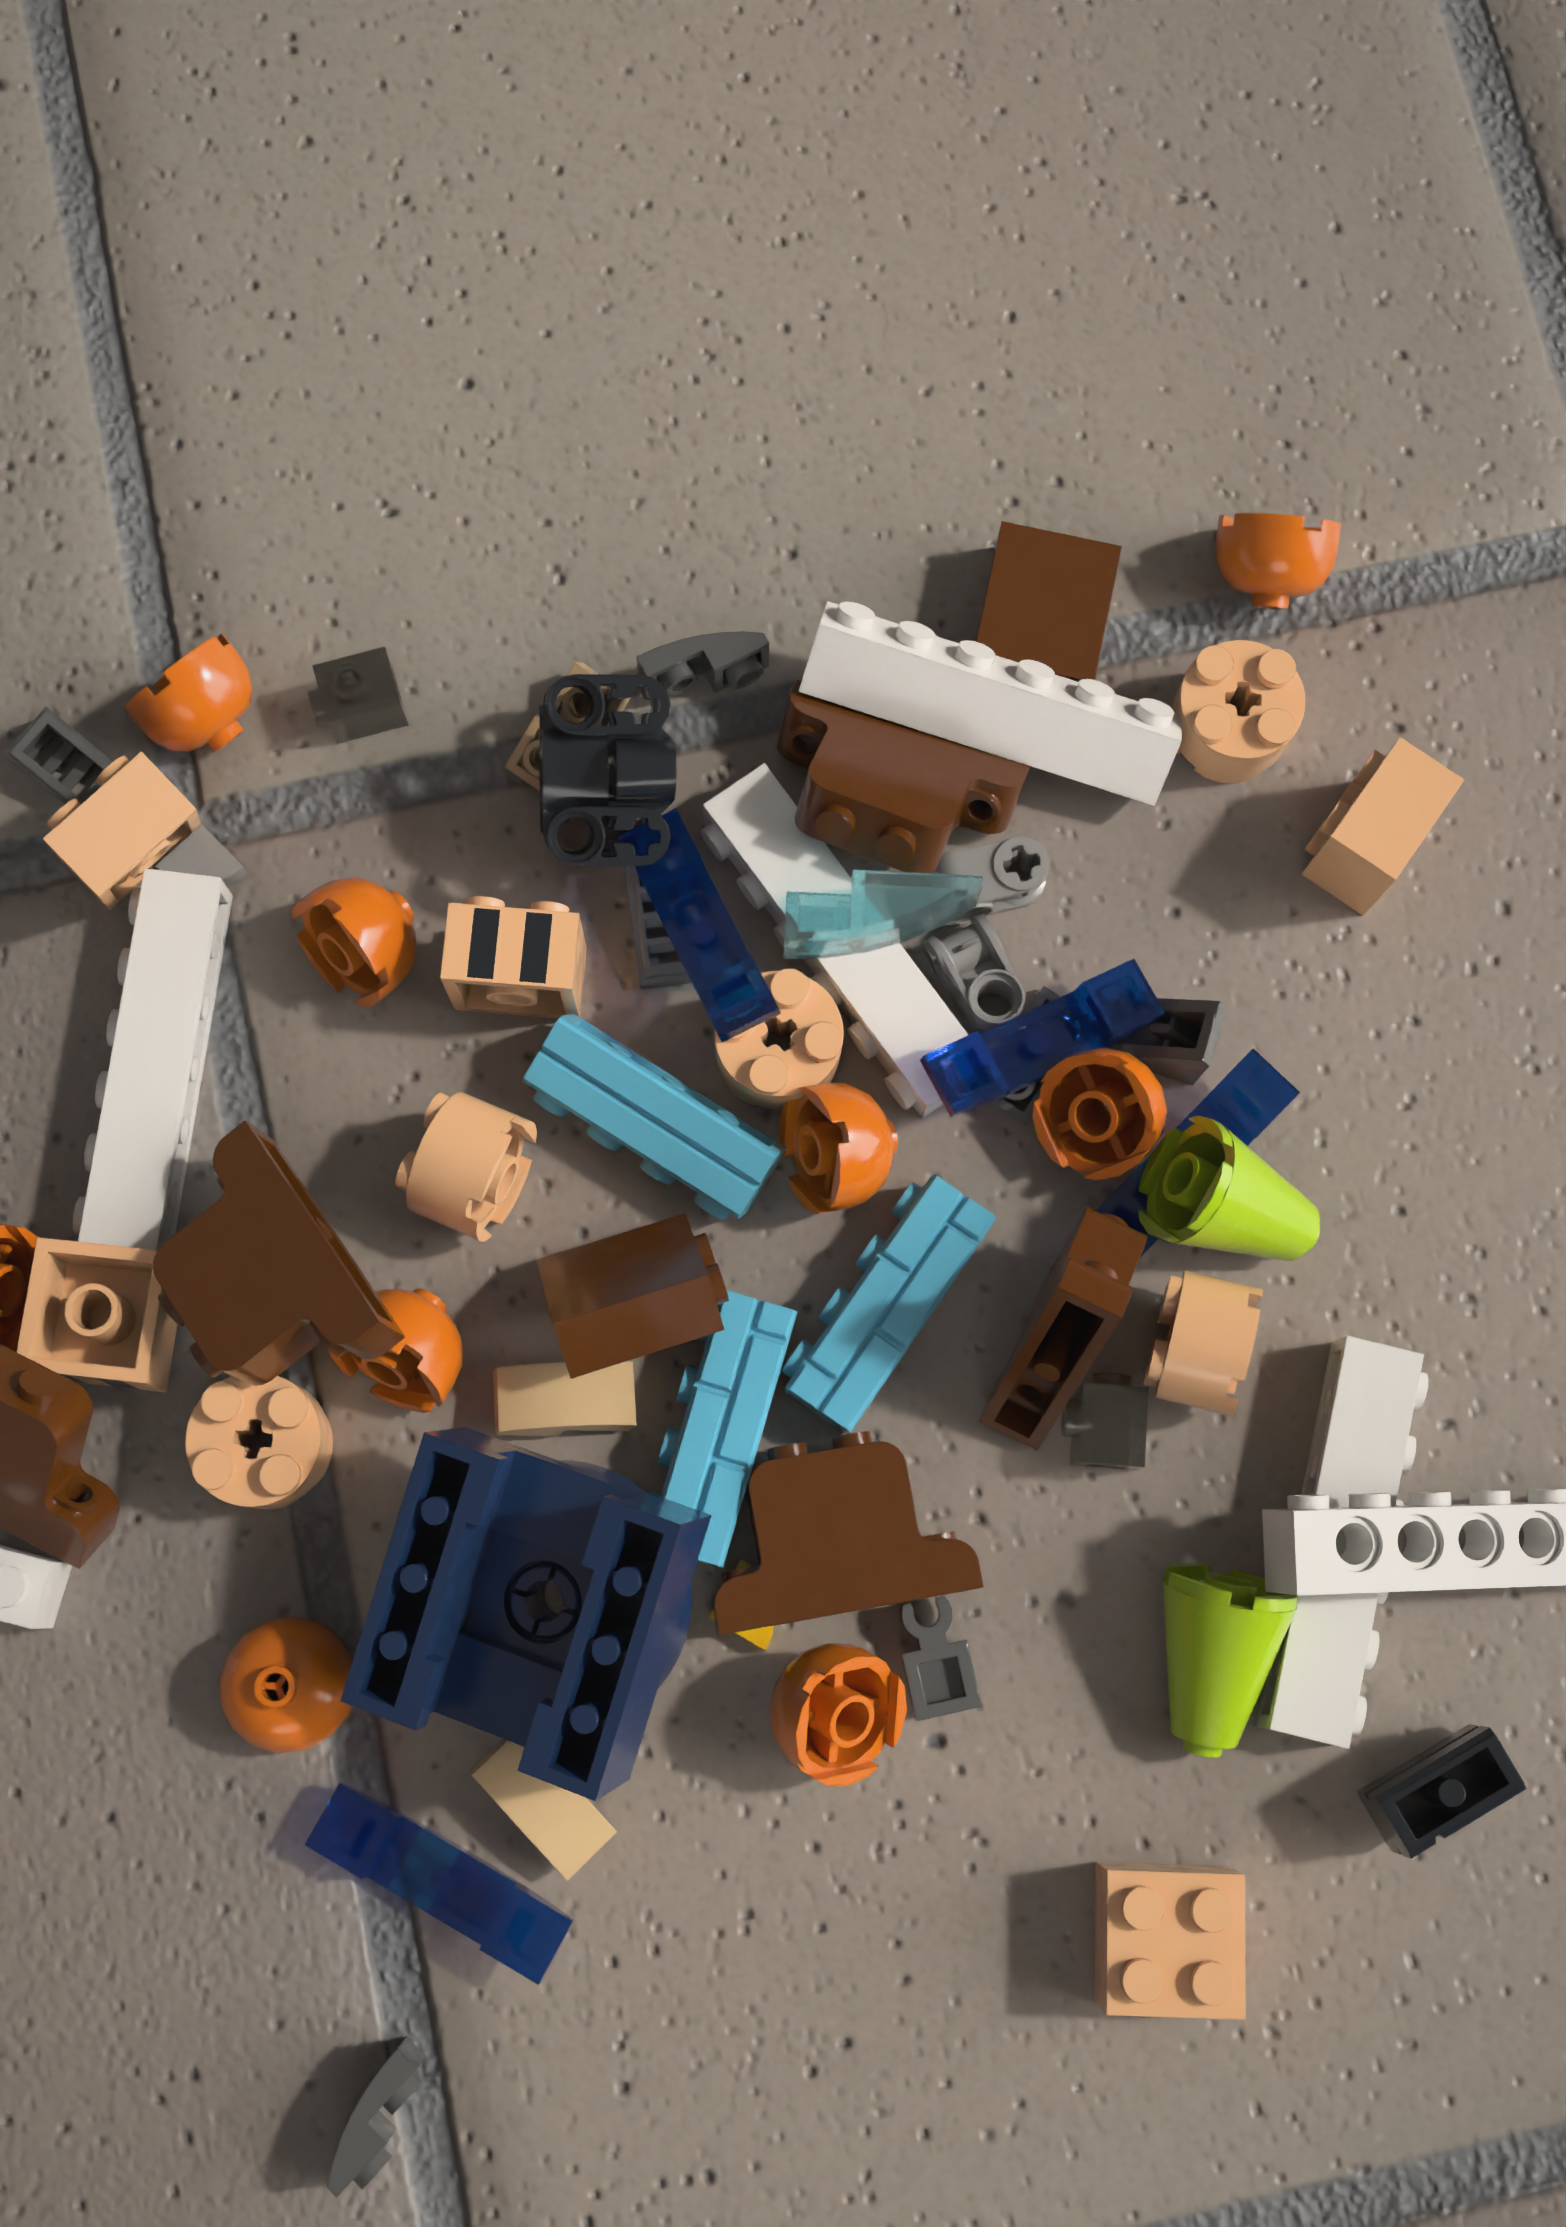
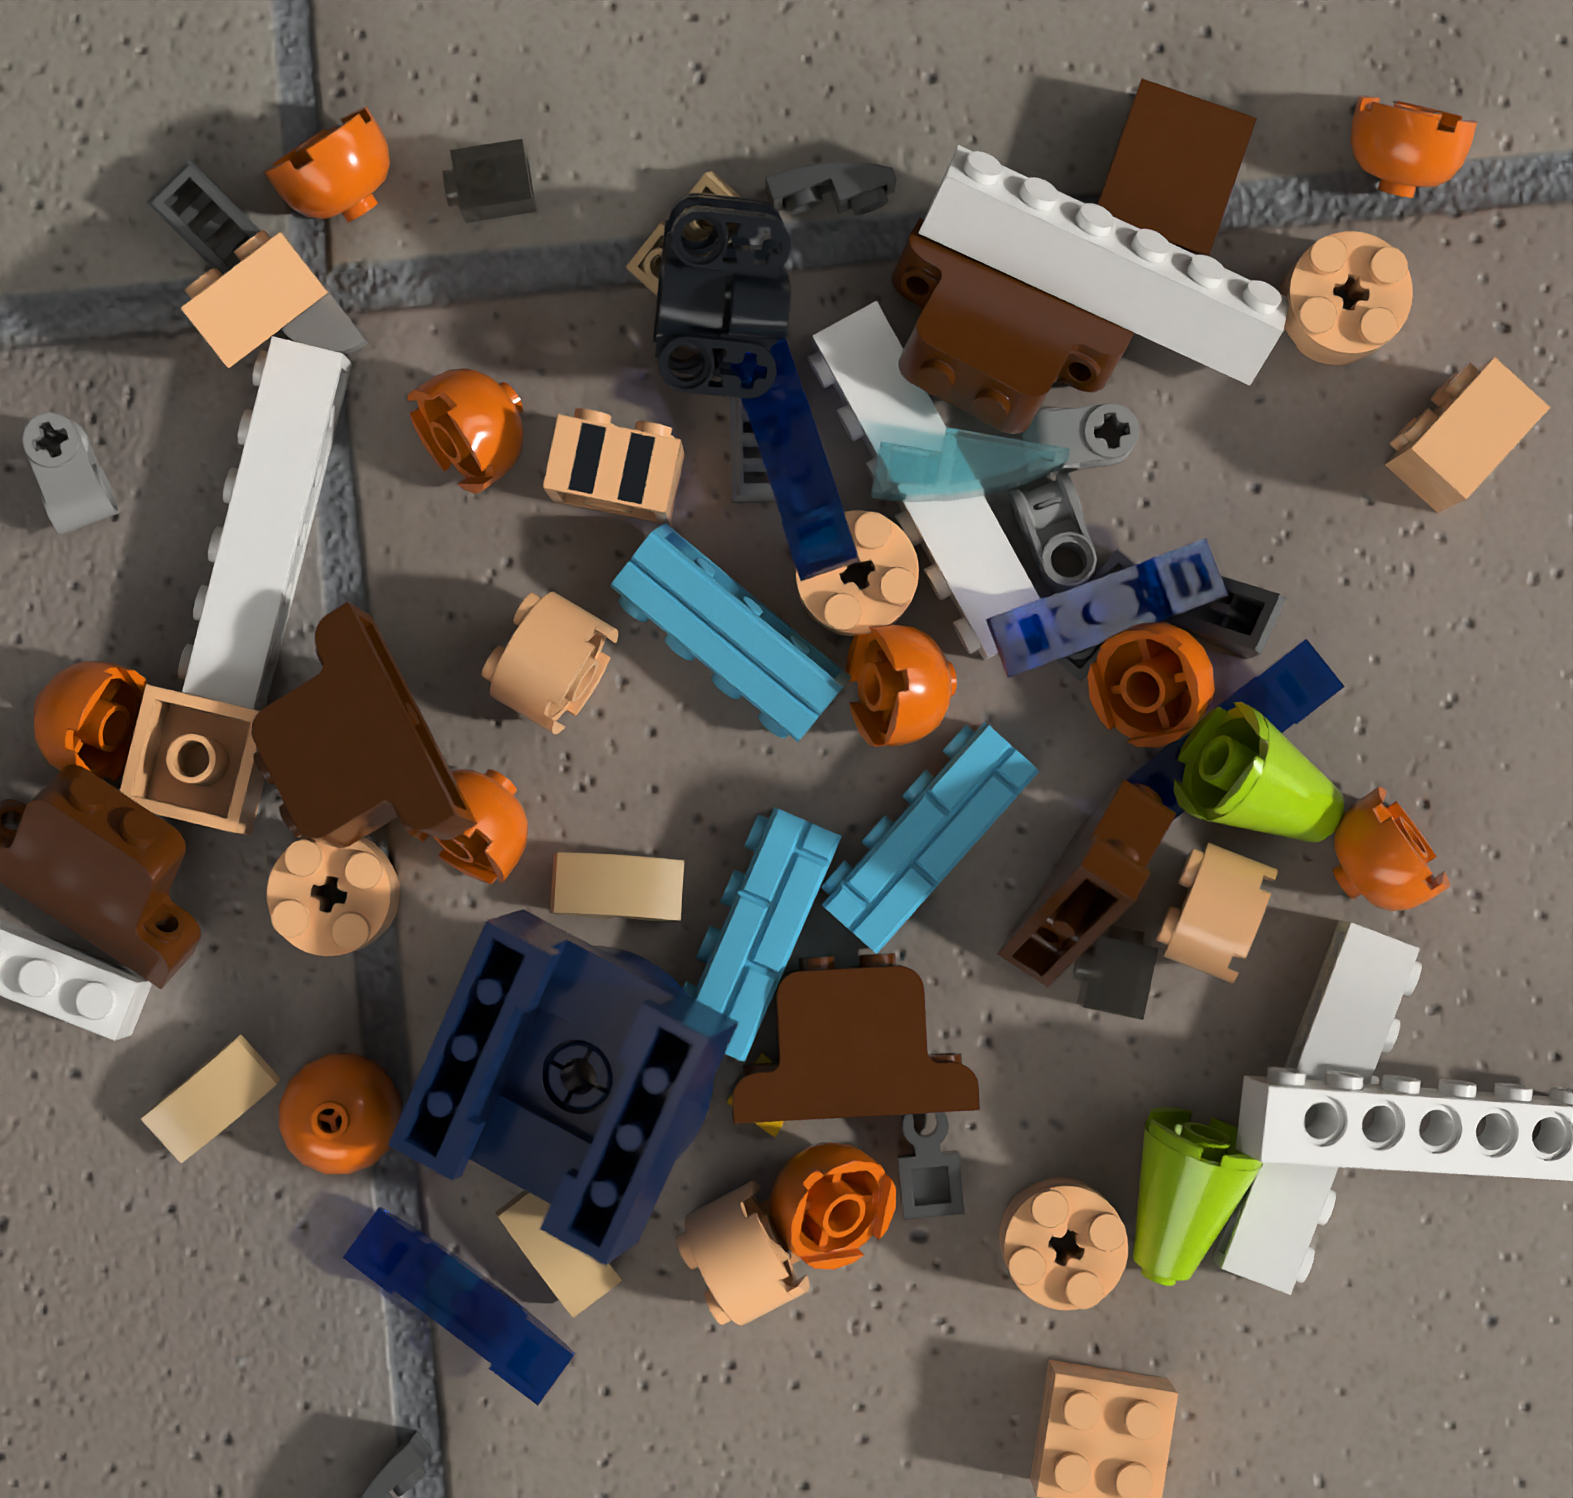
camera: 10 degrees right, 10 degrees up
(143, 1685) = (210, 1099): none -> tan slope
(632, 1294) = (690, 802): reddish brown brick -> none
(744, 1784) = (740, 1256): none -> light nougat brick
(1133, 1733) = (1078, 1275): none -> light nougat brick
(1369, 1265) = (1384, 856): none -> orange cylinder
(1441, 1790) = (1369, 1340): black brick -> none

